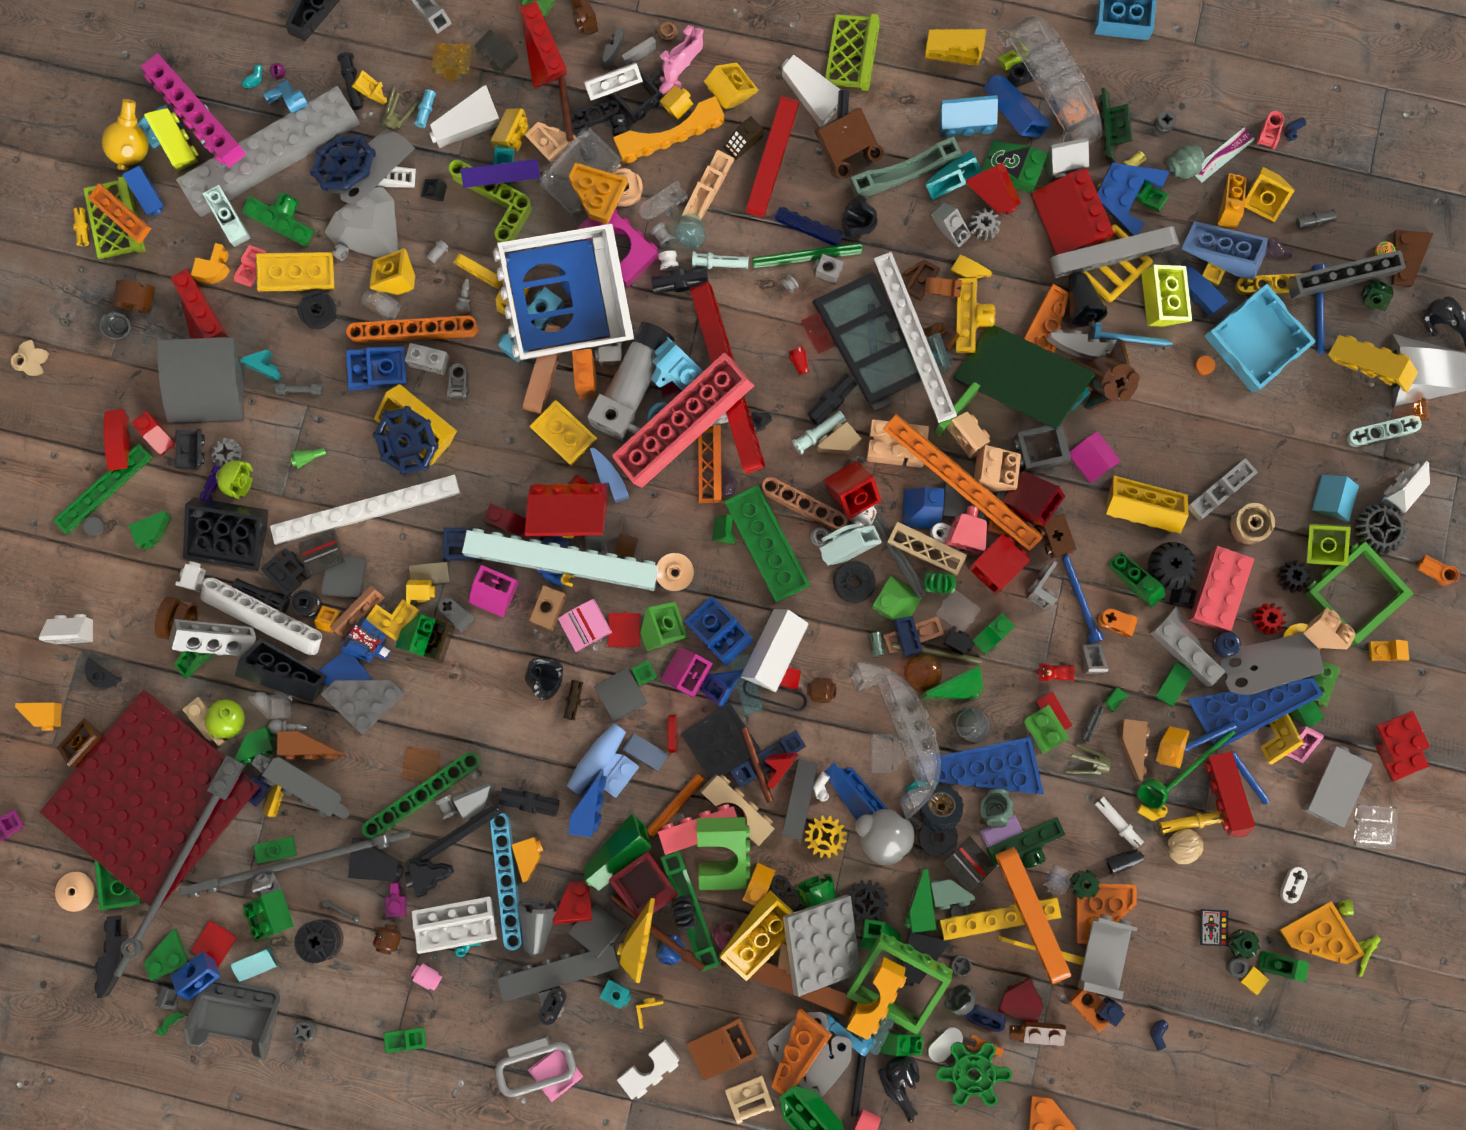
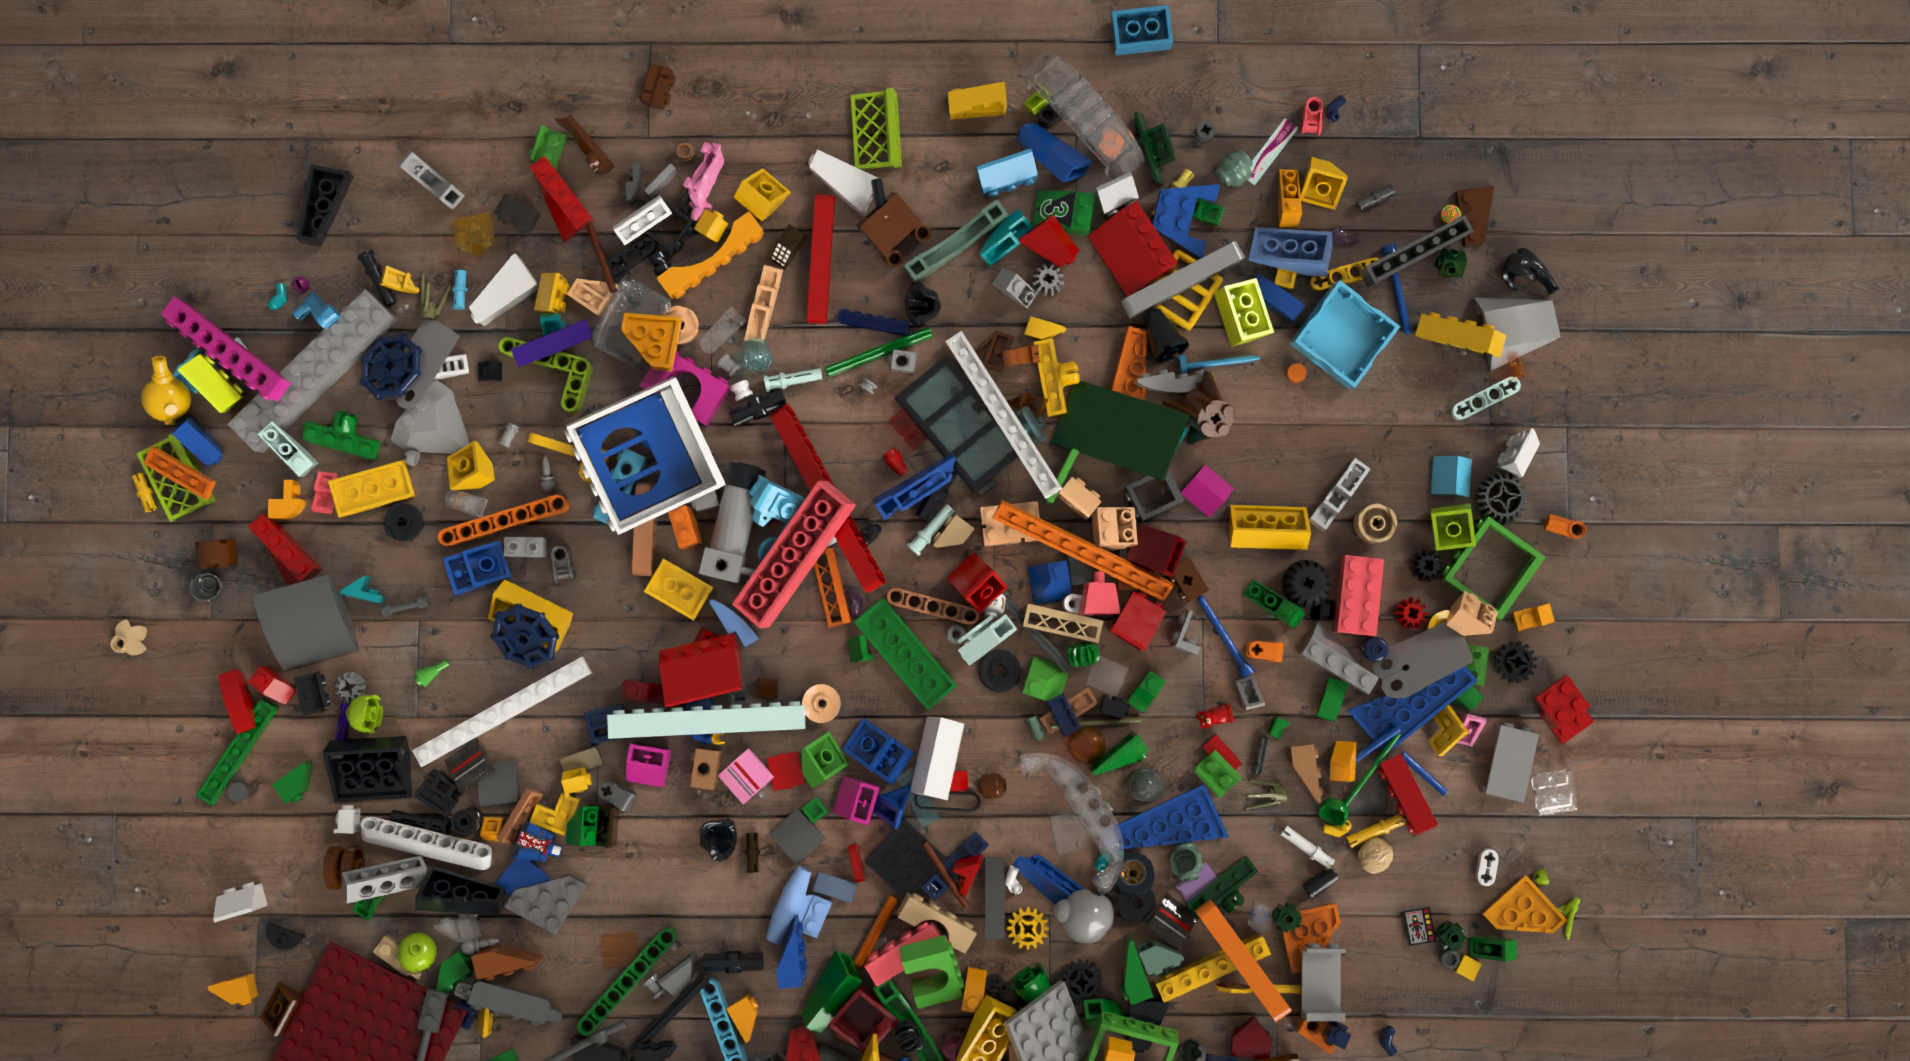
camera: 10 degrees left, 5 degrees up
(814, 387) = (915, 487): none -> blue wedge
(964, 965) = (1186, 1024): dark grey wheel -> none
(1370, 686) = (1512, 669): none -> black gear

